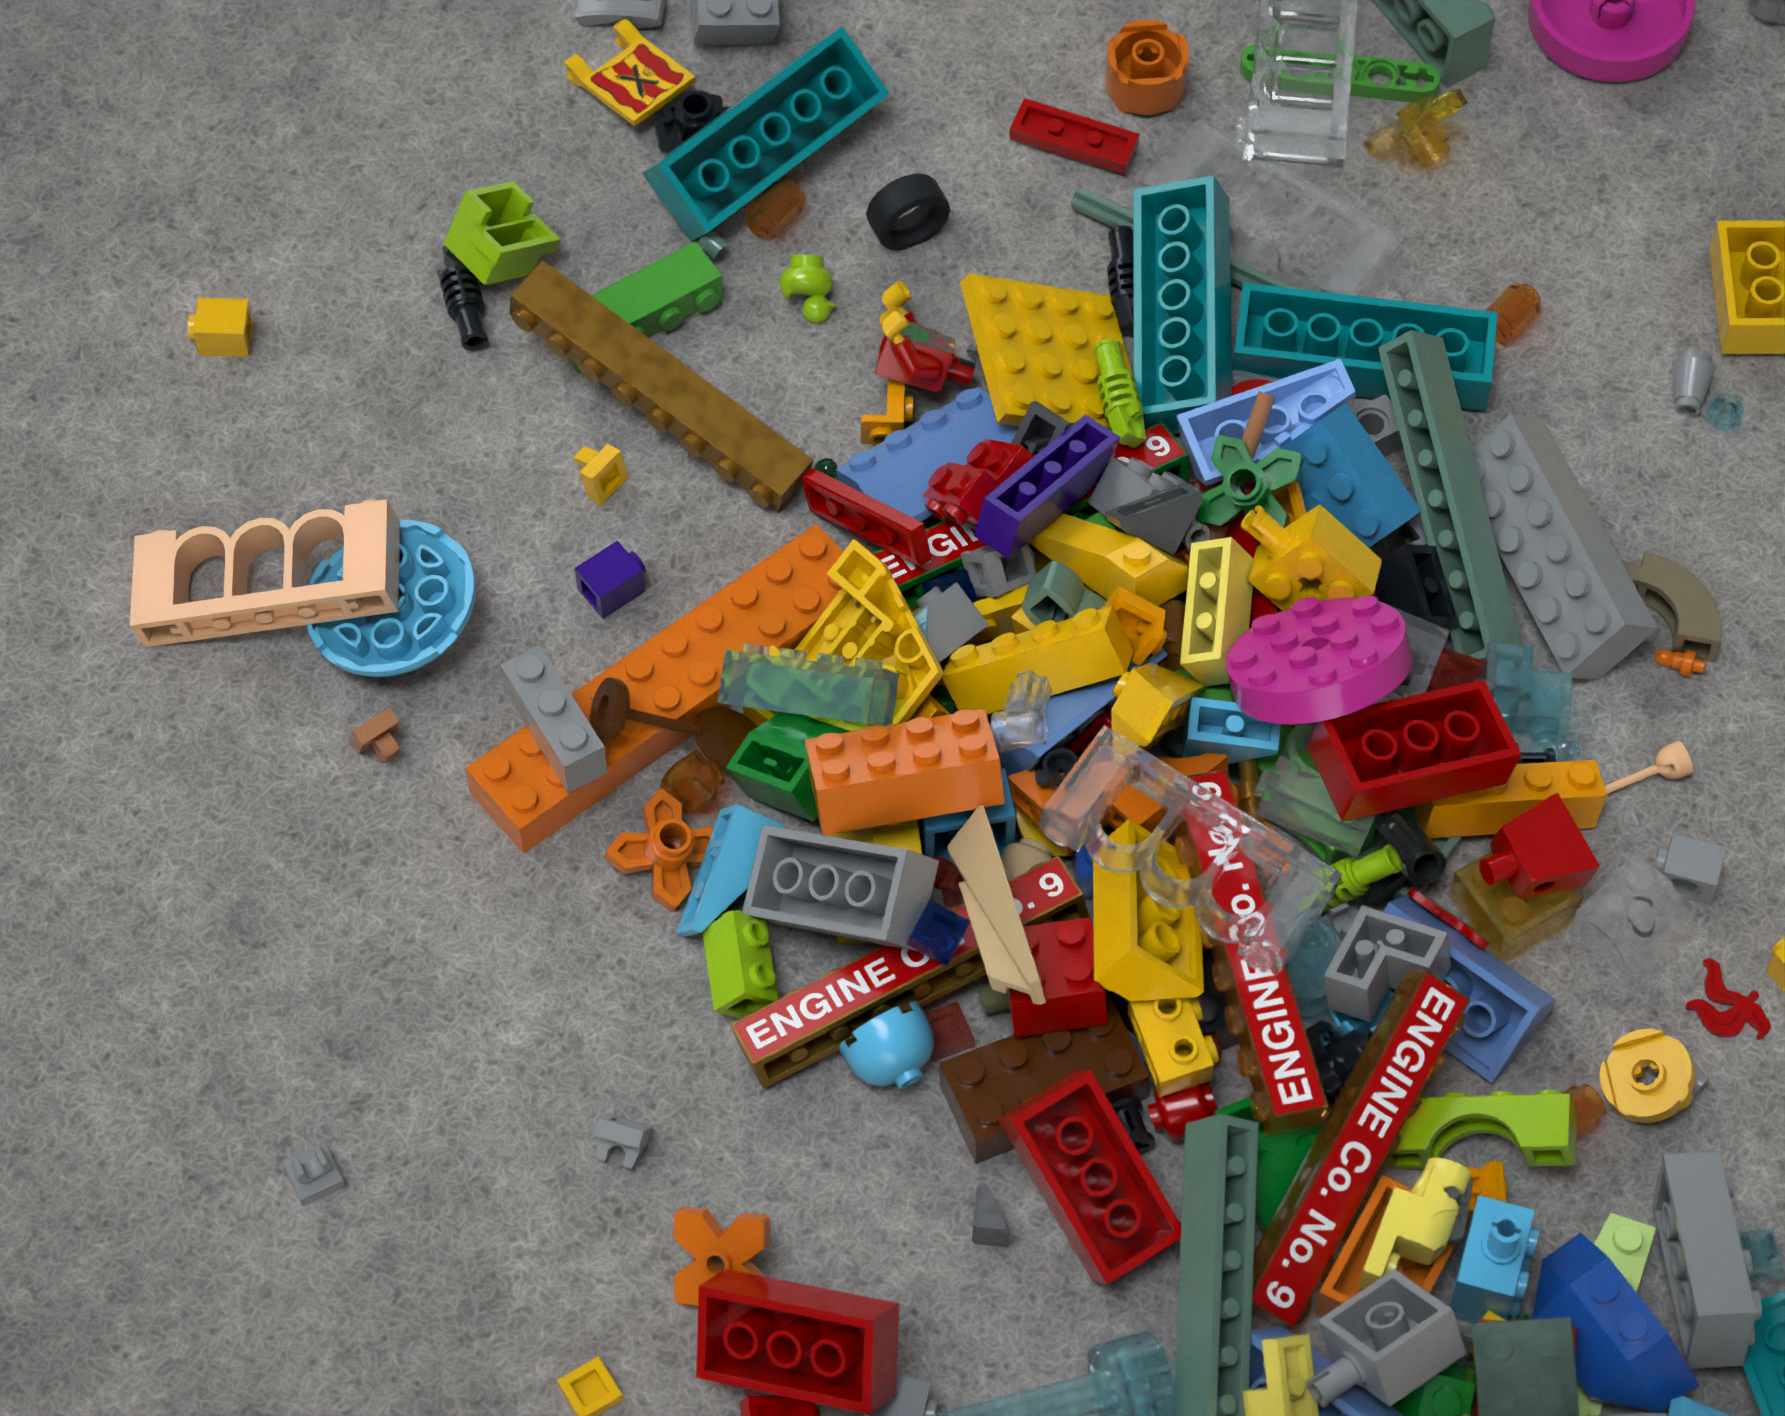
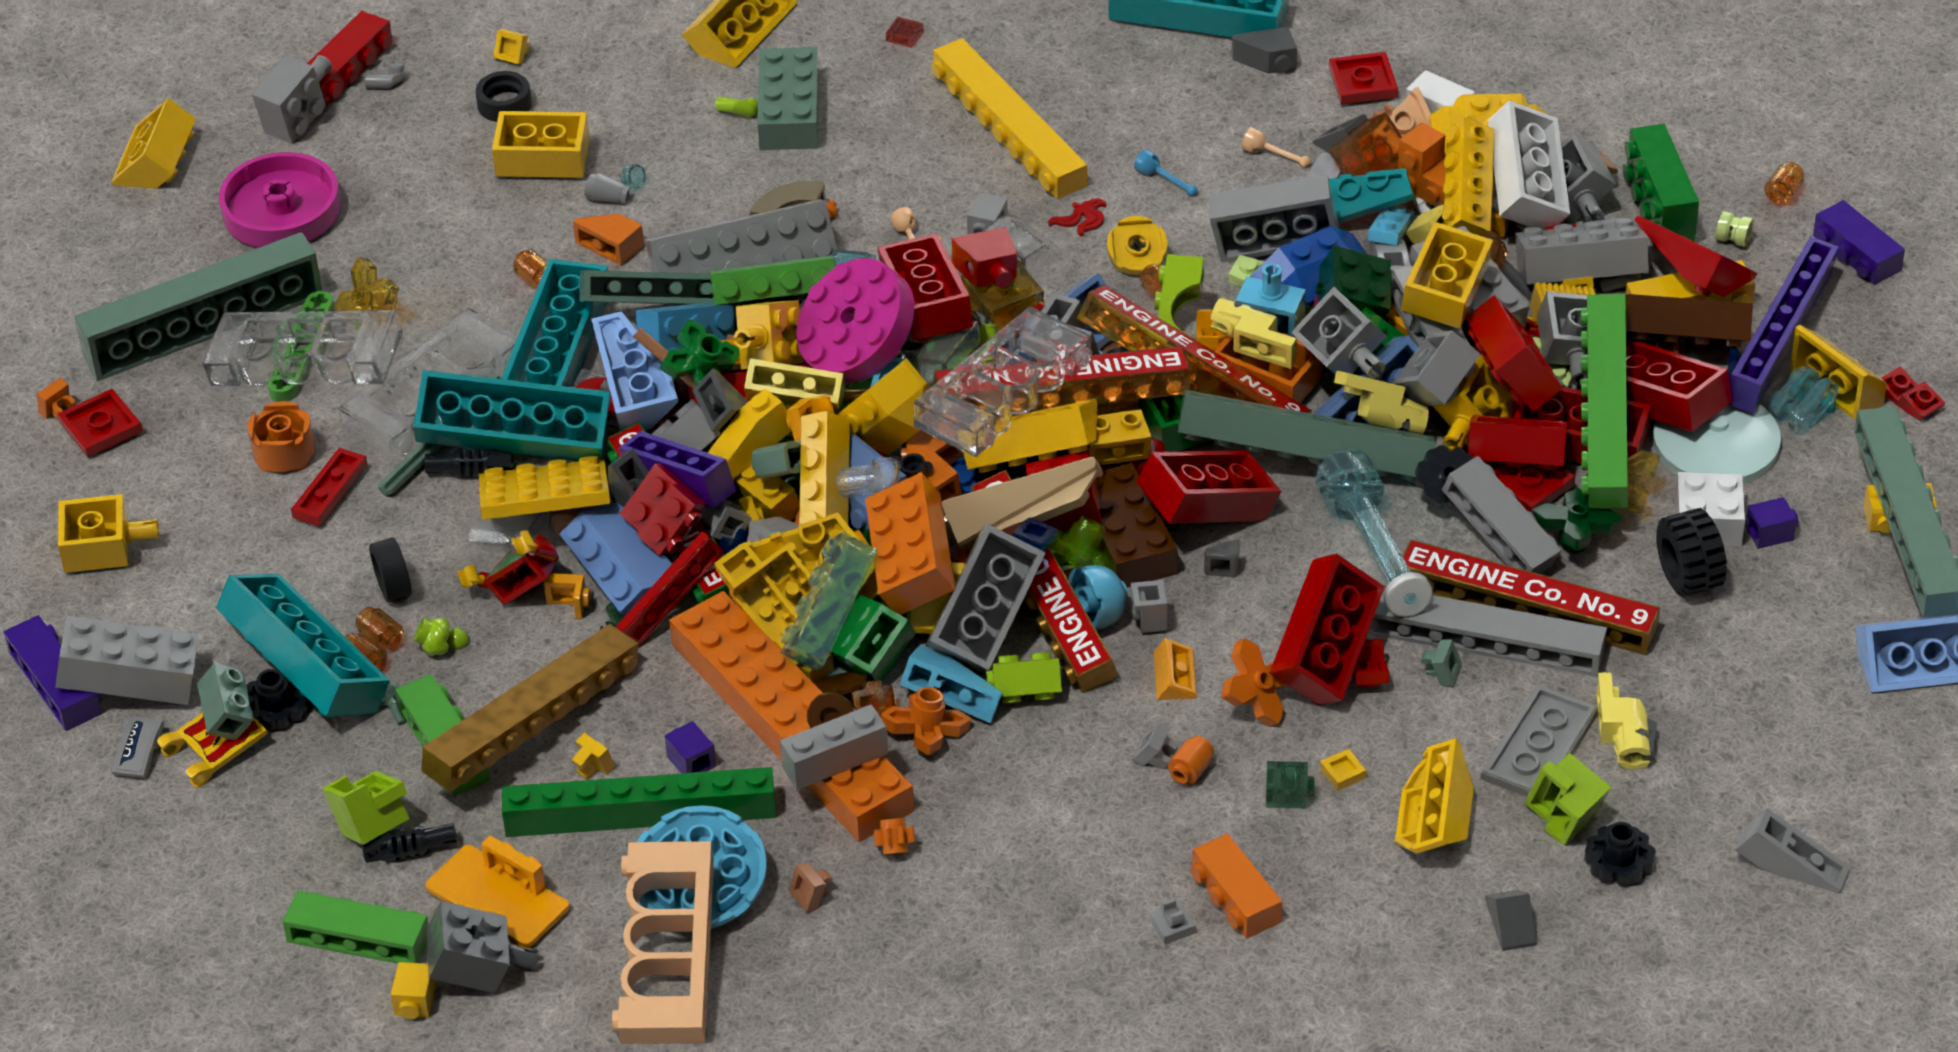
camera: 85 degrees left, 15 degrees down
(270, 394) = (472, 948): none -> dark grey brick
(322, 259) = (356, 928): none -> bright green brick
(363, 1247) = (1236, 886): none -> orange brick
(378, 399) = (501, 883): none -> light orange bracket
(456, 823) = (894, 836): none -> orange gear
(516, 513) = (633, 800): none -> green brick
(547, 1311) = (1288, 785): none -> clear green brick
(595, 1184) = (1191, 760): none -> orange brick
(656, 64) = (225, 701): none -> sand green brick
(777, 1166) = (1174, 671): none -> light orange slope
(819, 219) = (379, 627): none -> clear orange brick
(876, 1115) = (1149, 605): none -> light grey brick
(964, 1010) = (1081, 543): none -> clear neon green plant
(1119, 394) = (583, 450): lime hinge -> none
(1443, 571) = (768, 279): none -> bright green brick
(1587, 397) = (609, 236): none -> orange slope

